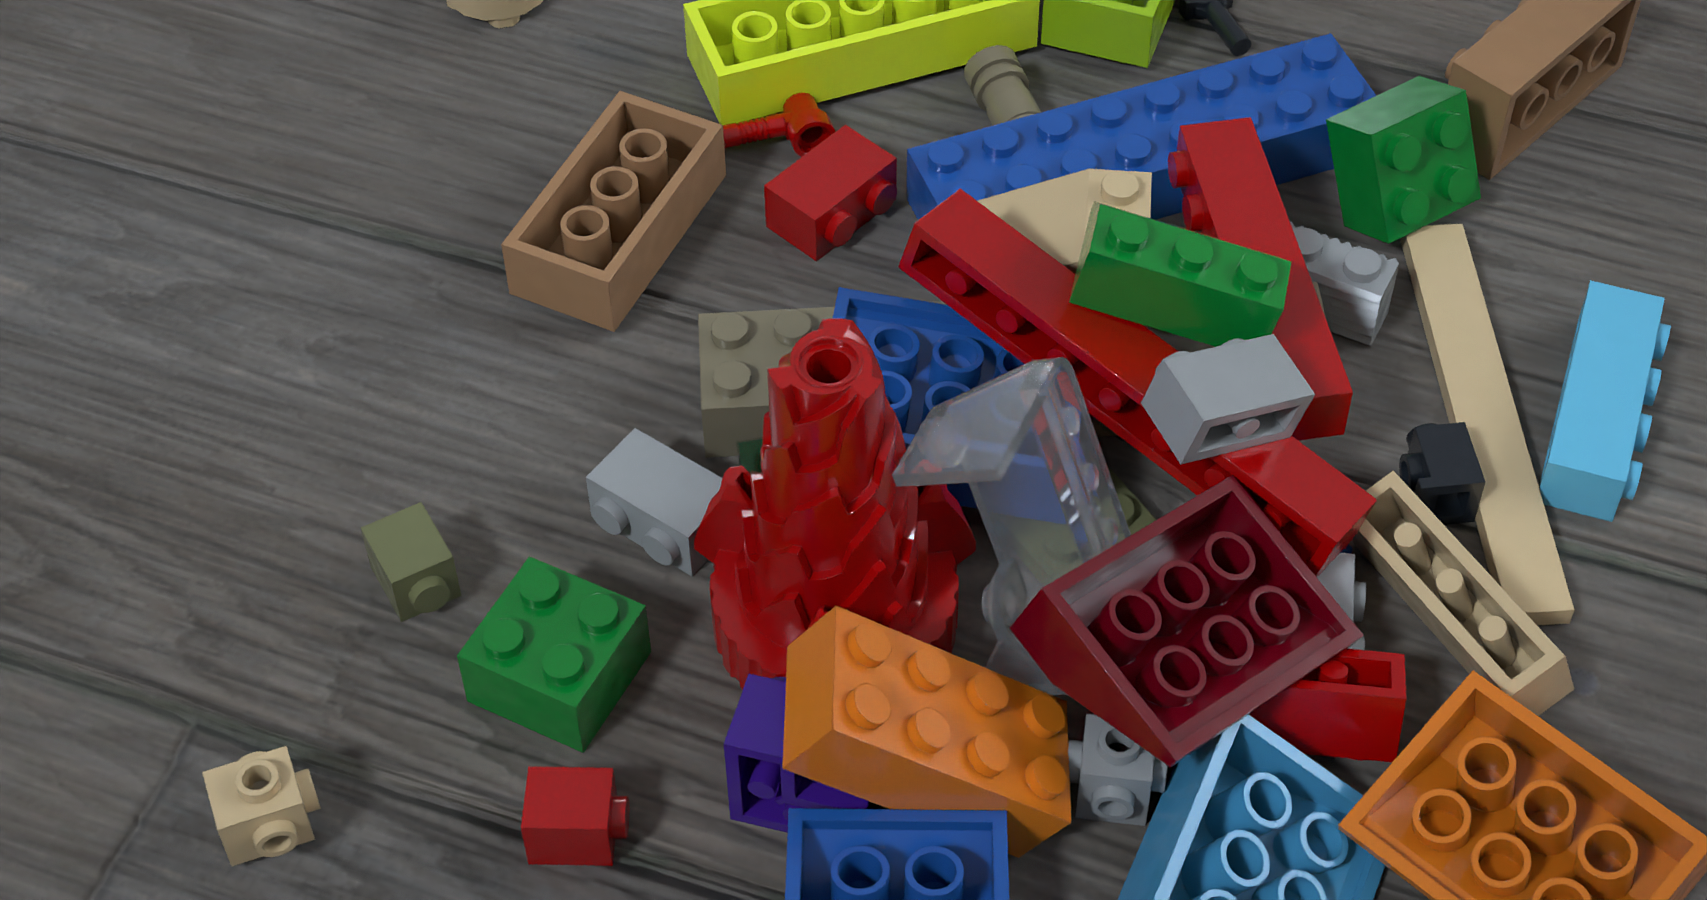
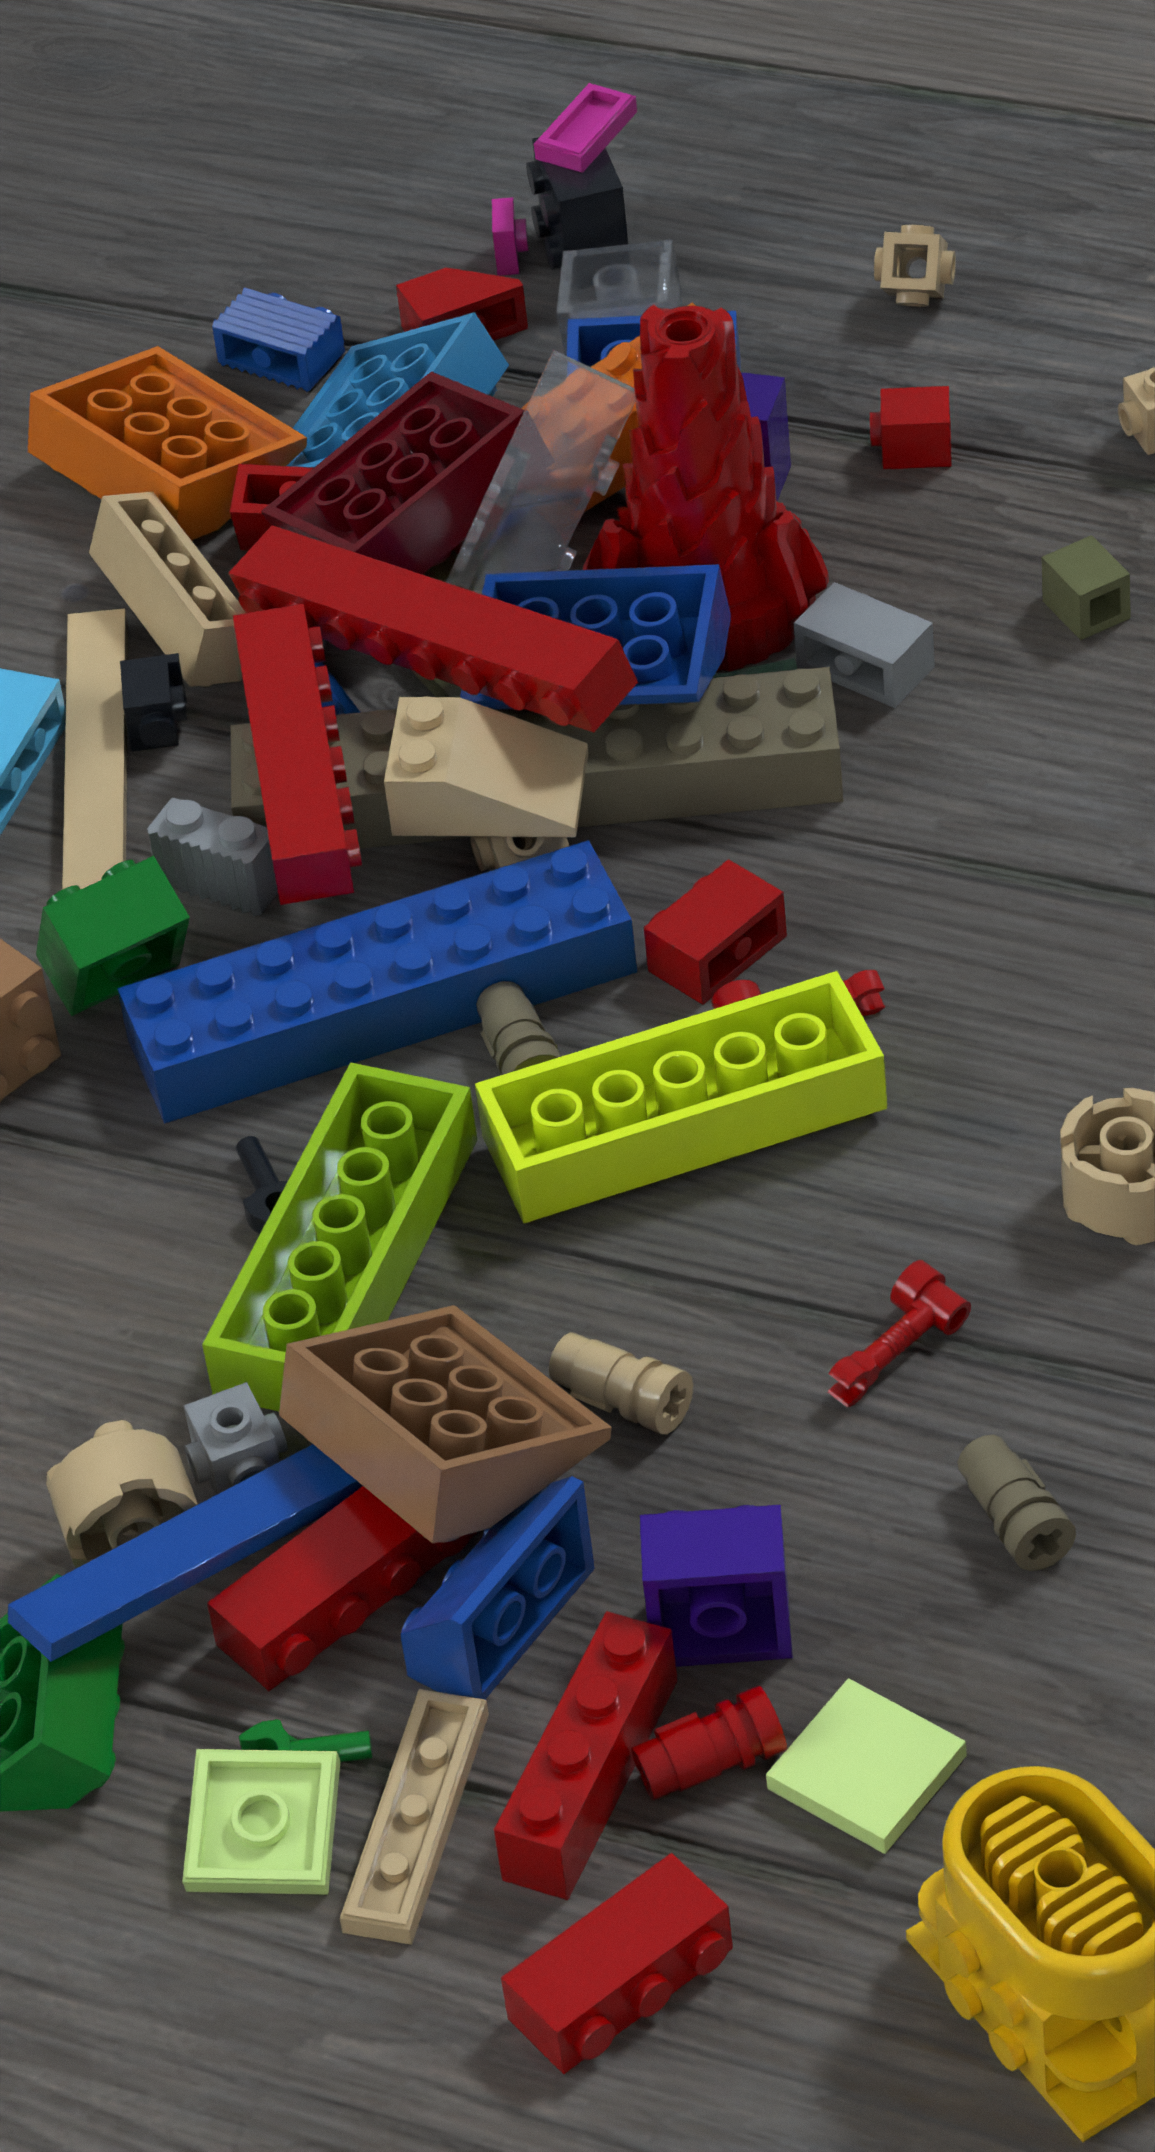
camera: 175 degrees left, 5 degrees down
(555, 653) = (943, 522): green brick -> none
(615, 210) = (937, 878): medium nougat brick -> none
(1177, 278) = (371, 644): green slope -> none
(1226, 398) = (349, 558): light grey brick -> none

